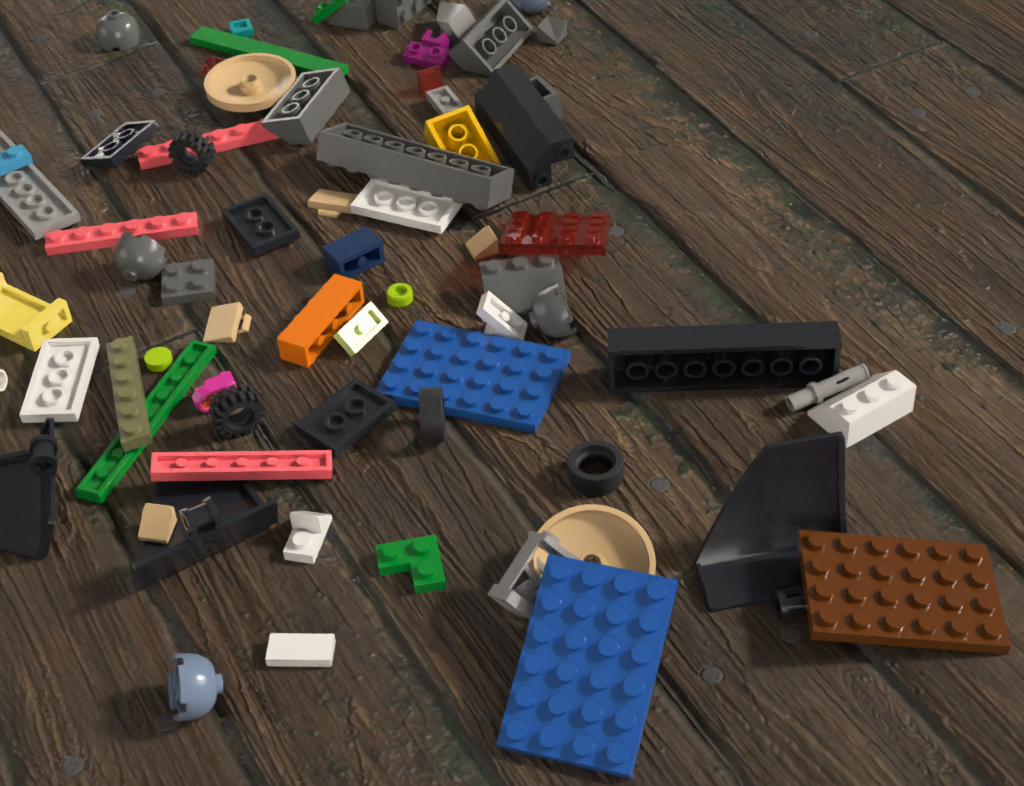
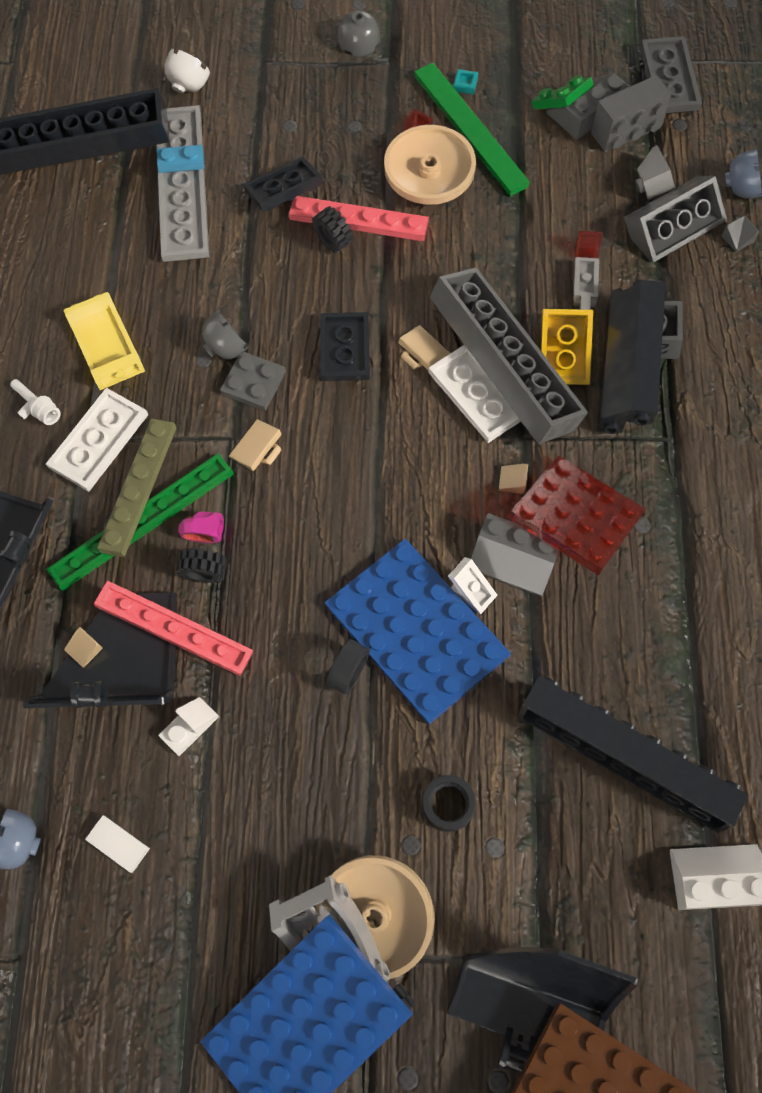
camera: 30 degrees right, 25 degrees up
(108, 234) = (233, 292): coral plate -> none
(158, 359) = (183, 458): lime tile -> none
(307, 106) = (461, 221): dark grey slope -> none
(320, 320) = (328, 493): orange brick -> none
(345, 417) = (286, 617): black plate -> none
(354, 253) = (398, 428): dark blue brick -> none
(360, 329) = (353, 523): plate -> none
(399, 295) = (411, 497): lime tile -> none
(414, 555) = (258, 806): green plate -> none
(429, 52) = (611, 203): magenta plate -> none
(551, 313) = (518, 605): dark grey cylinder -> none
(818, 391) = (703, 838): light grey pin -> none

